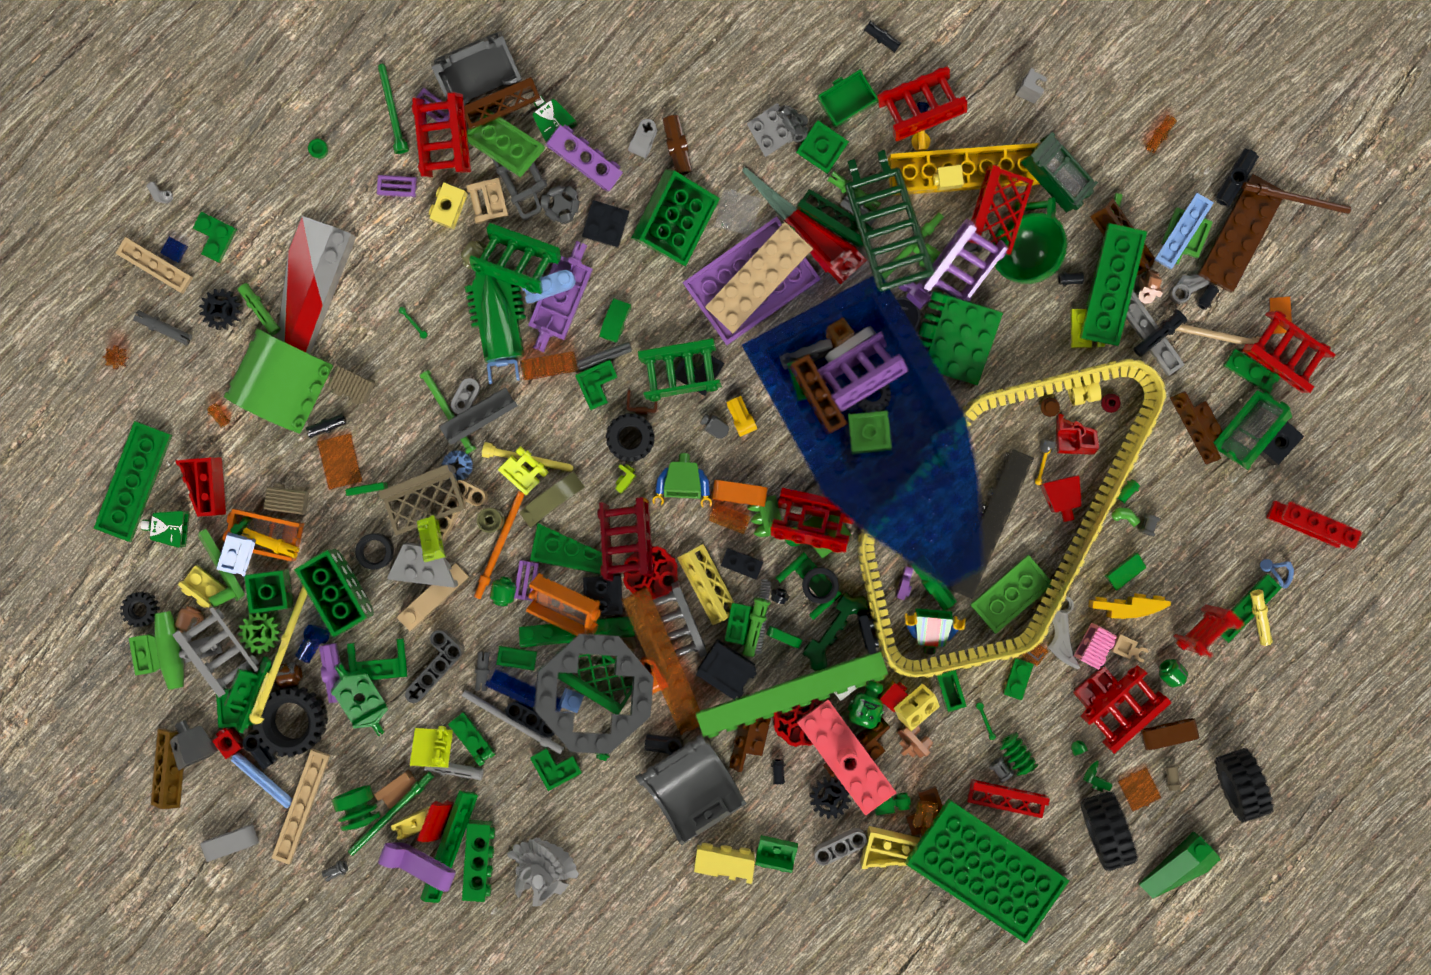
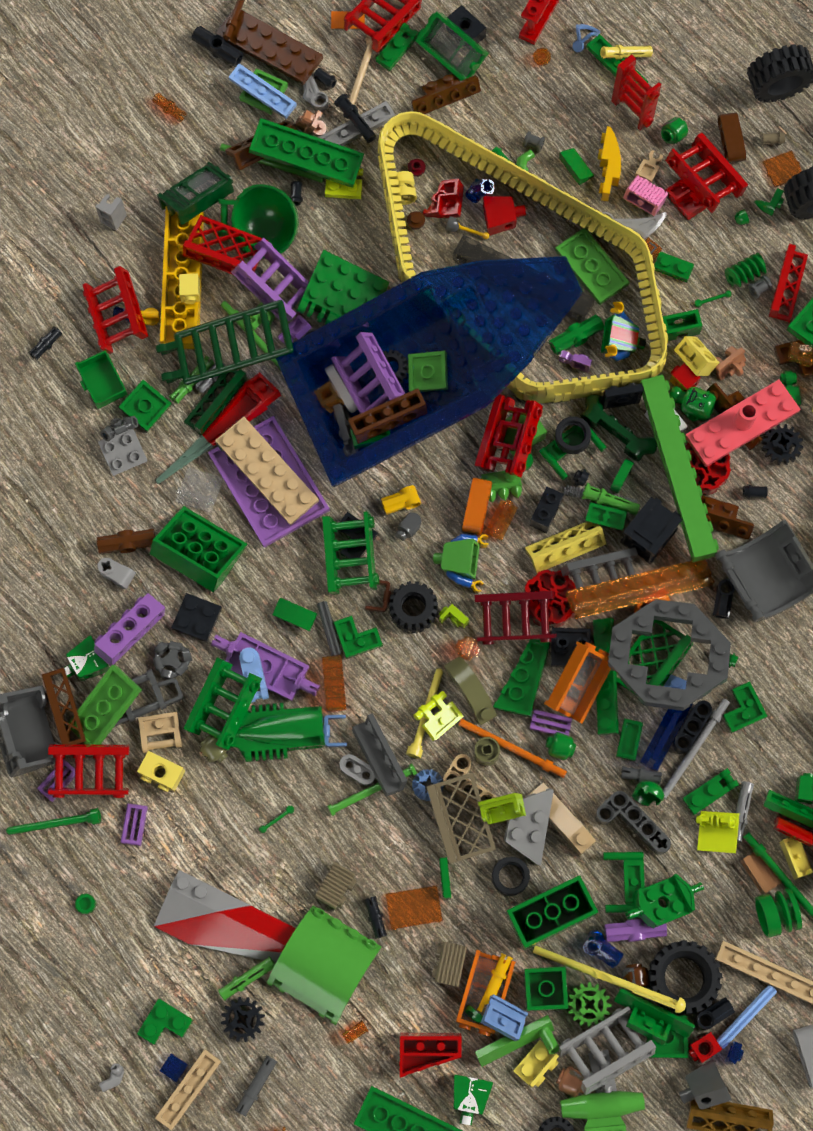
camera: 85 degrees left, 15 degrees down
(226, 770) = (735, 1053): none -> clear blue plate
(465, 678) = (648, 792): none -> green hair
(593, 494) = (467, 648): none -> clear orange gear
(1087, 471) = (479, 189): none -> clear blue piece
(1251, 527) = (541, 56): none -> clear orange plate

